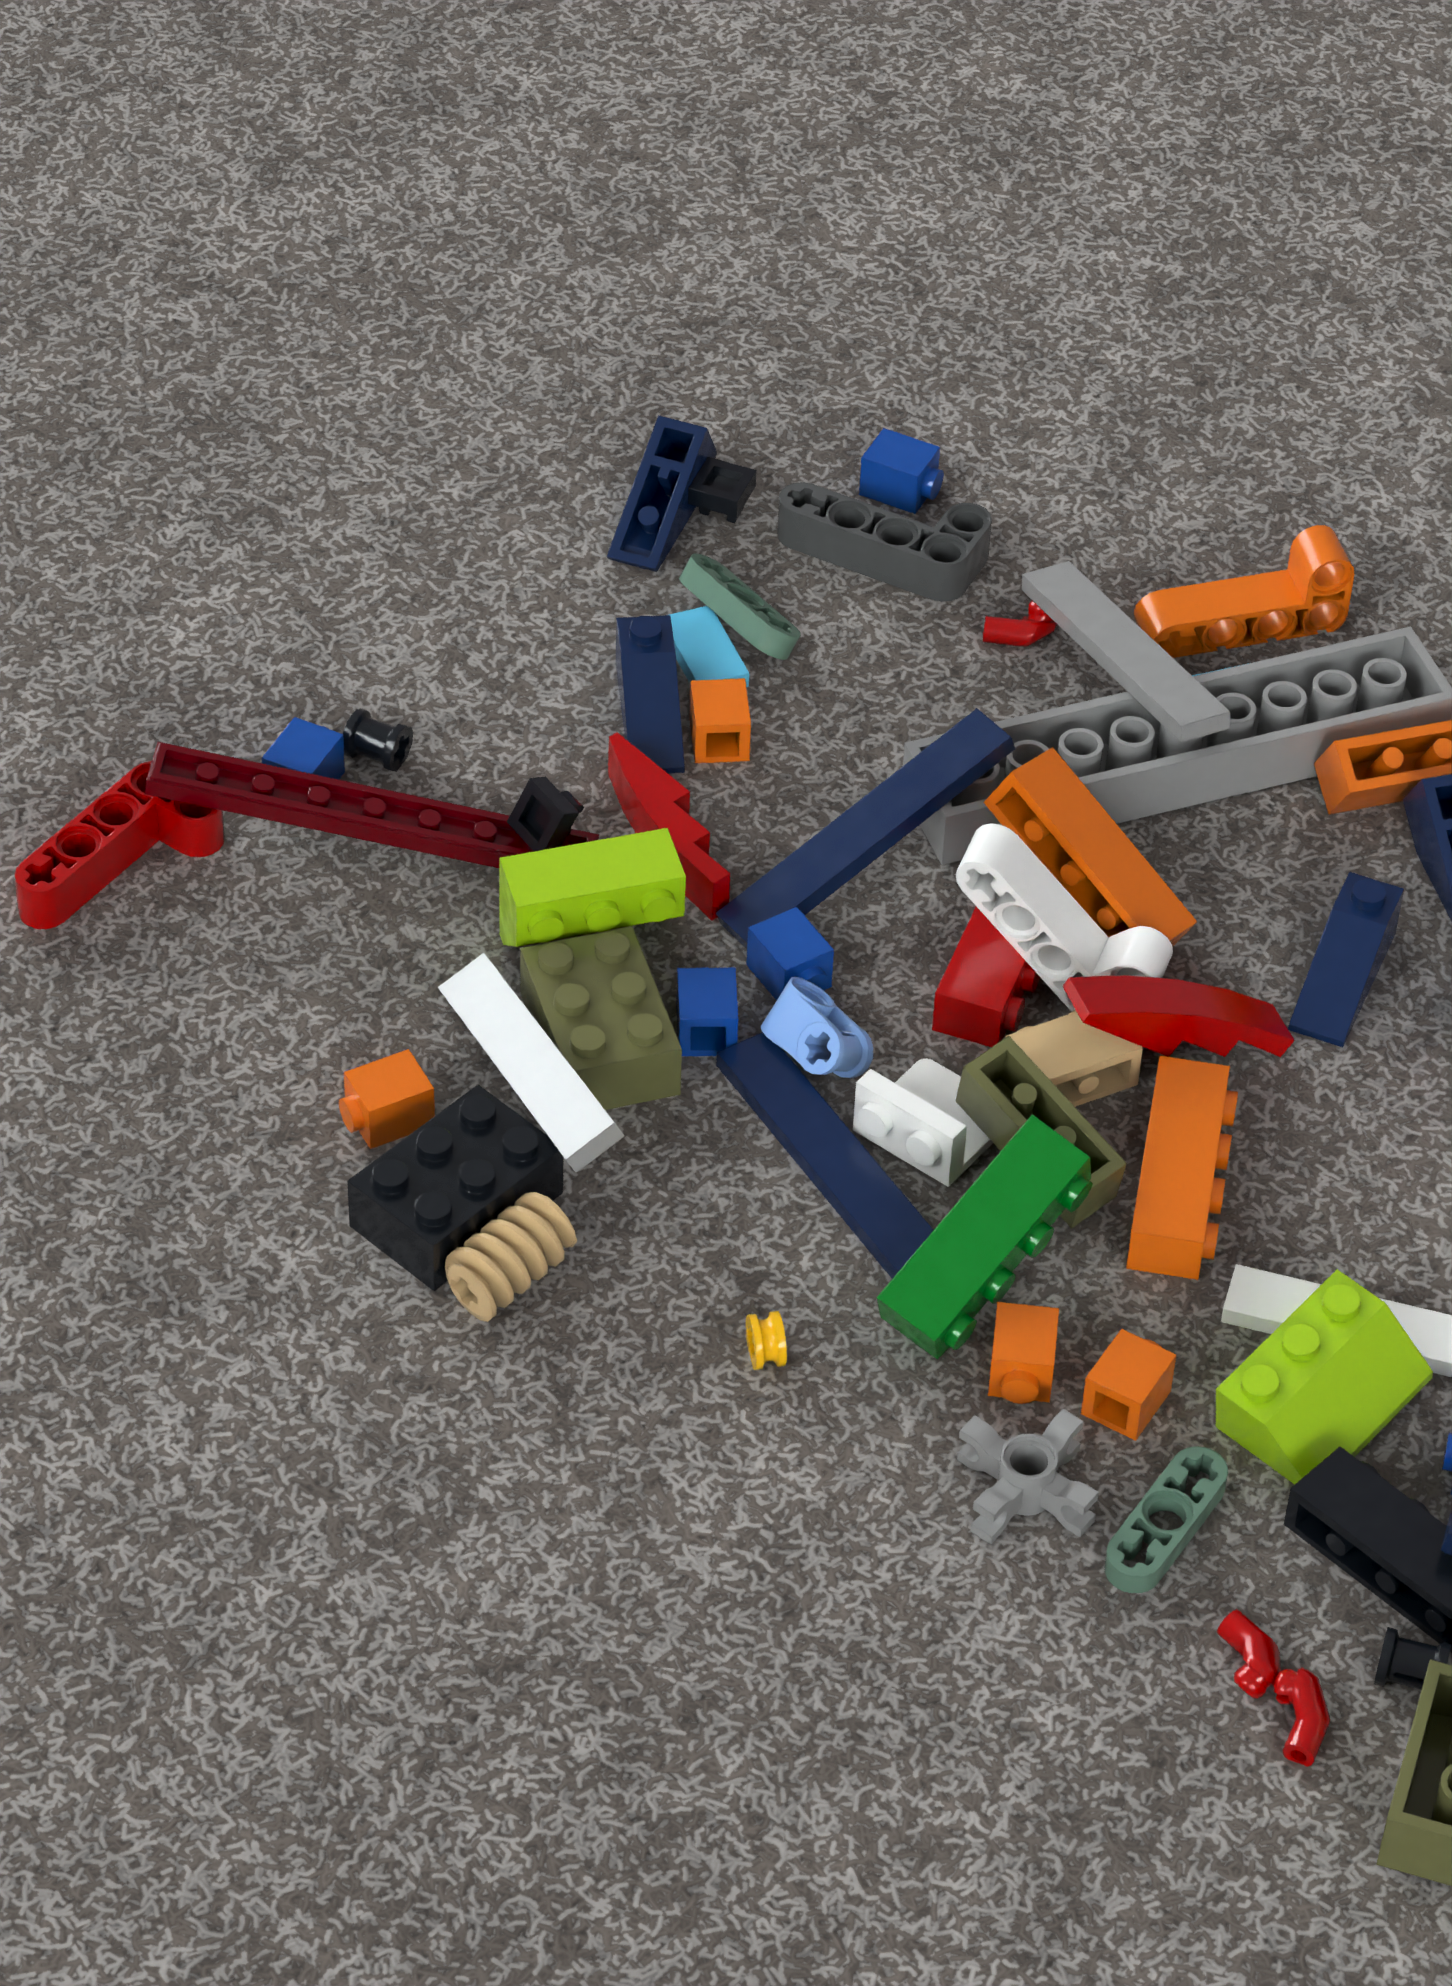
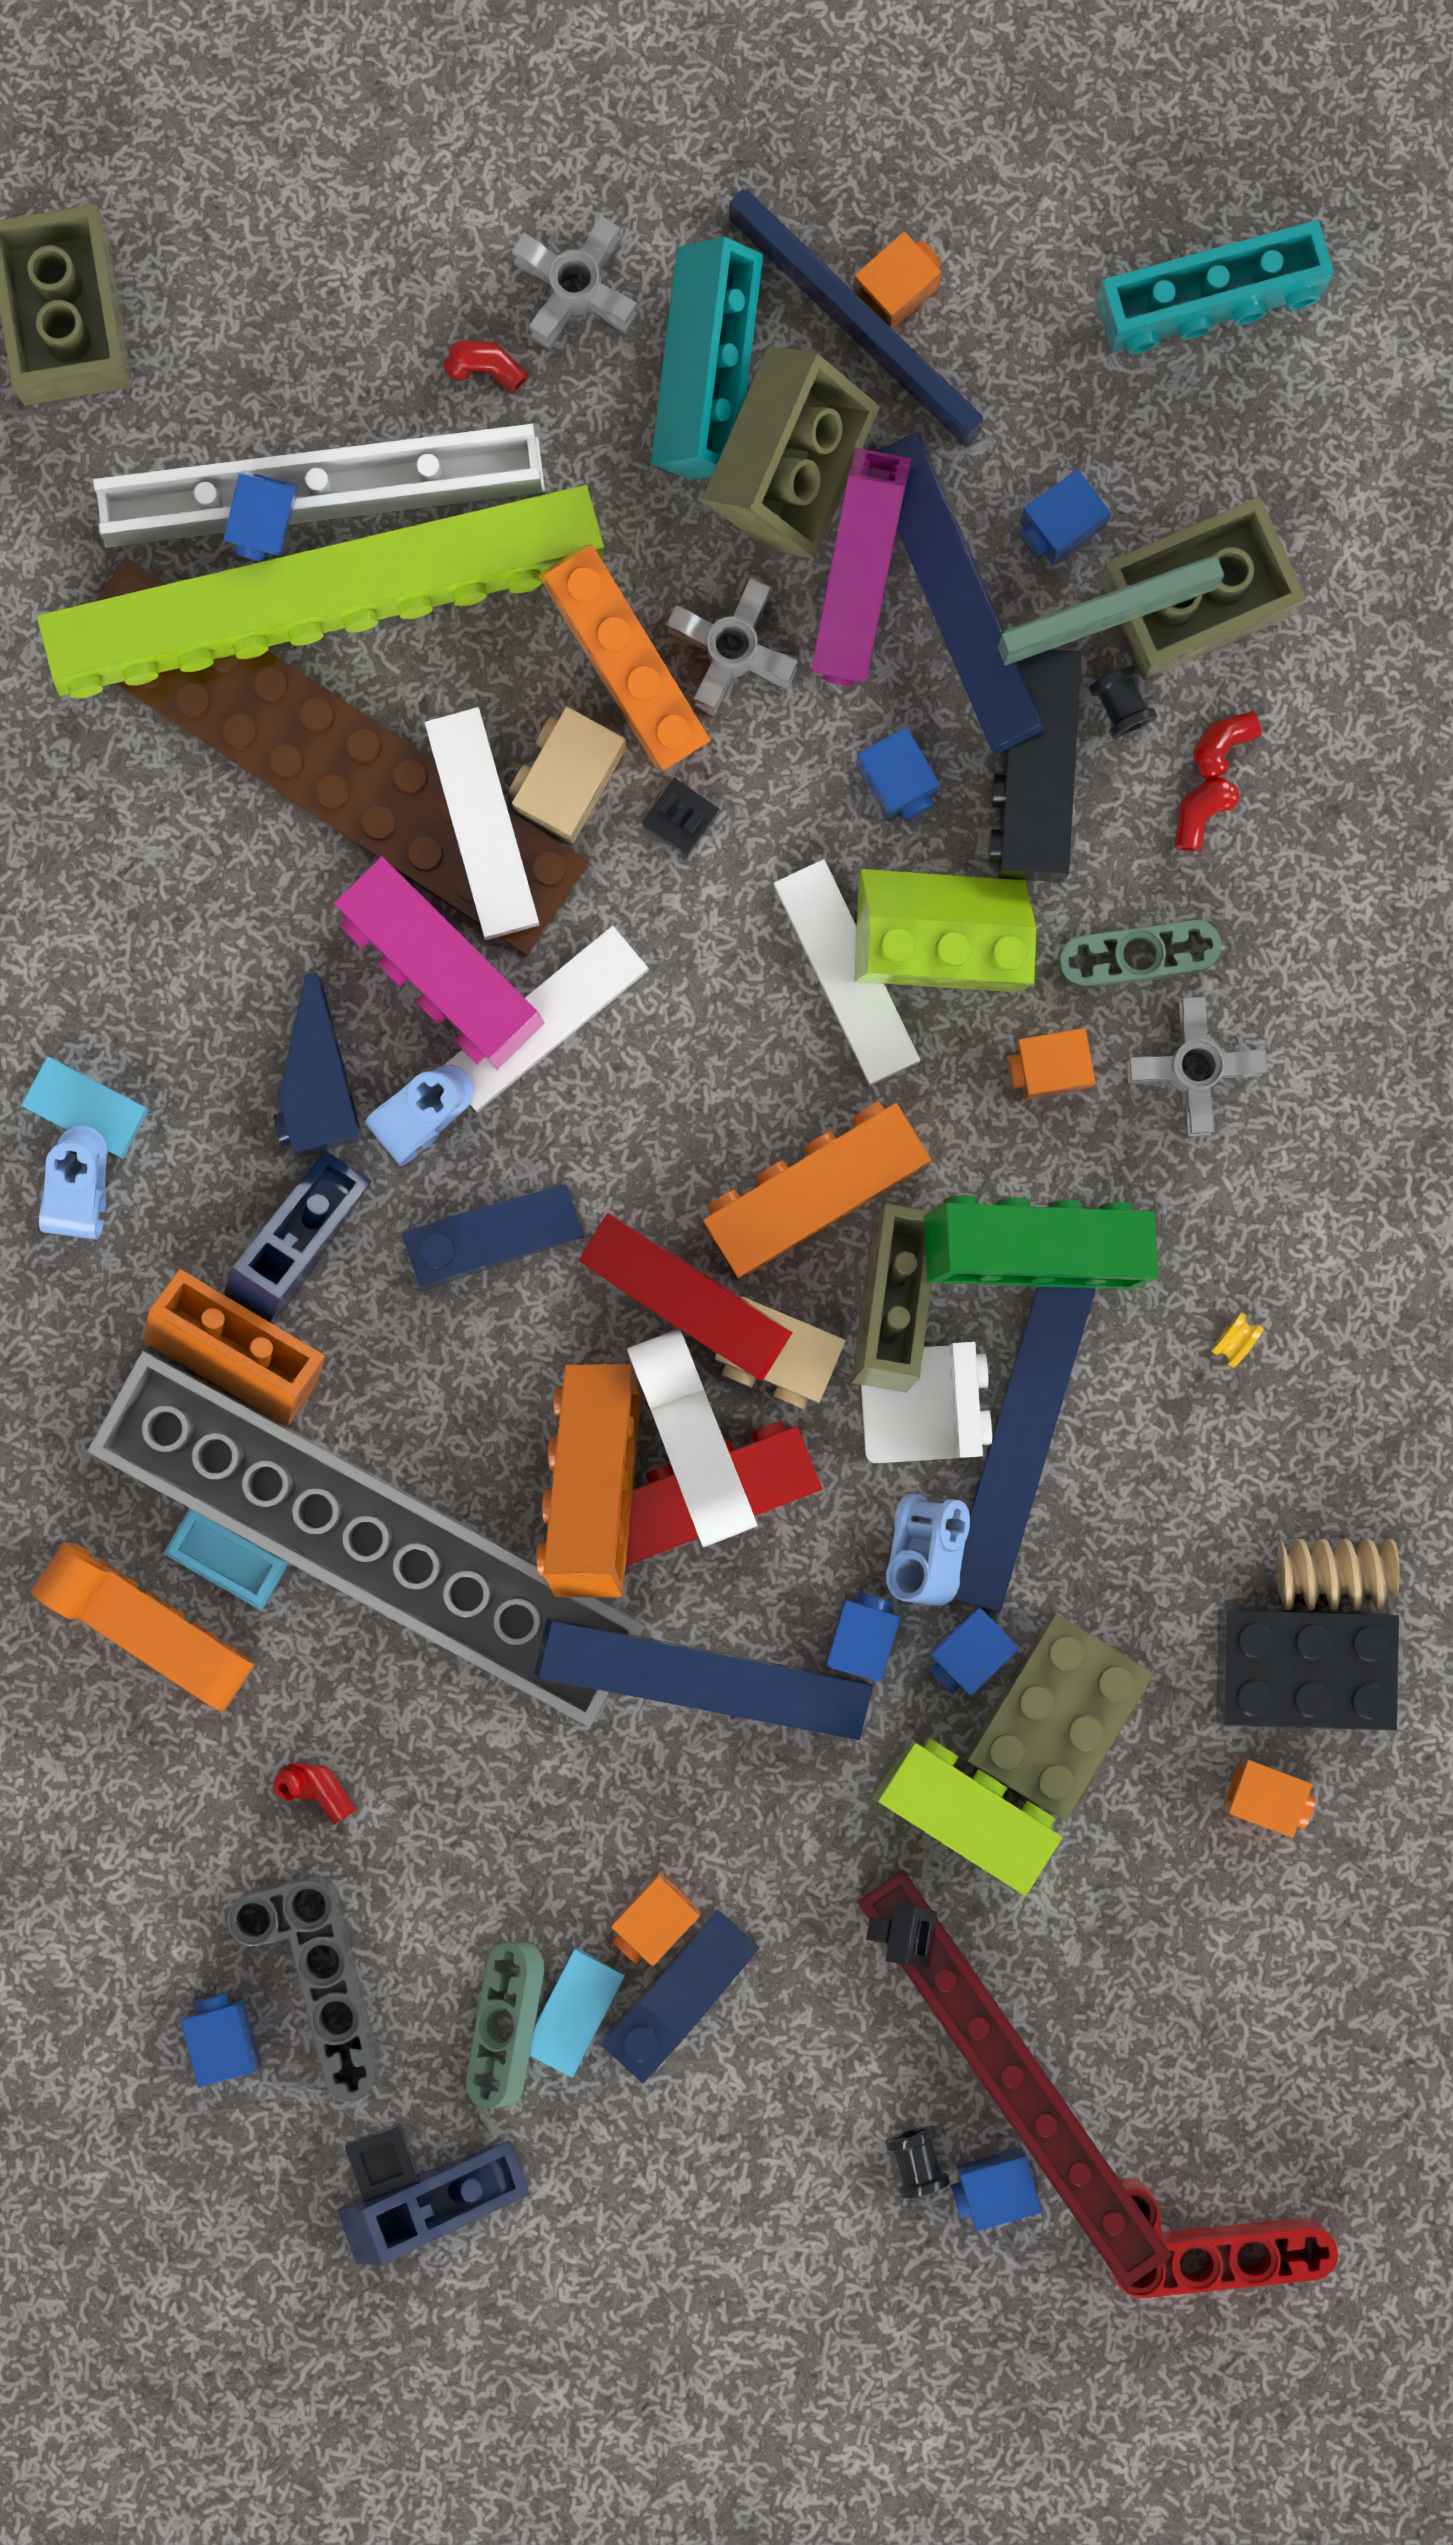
camera: 130 degrees left, 40 degrees up
(531, 1063) = (1166, 1712): tile -> none
(658, 801) = (801, 1874): red slope -> none
(1023, 1352) = (1093, 1155): orange brick -> none
(1126, 652) = (324, 1649): light grey tile -> none

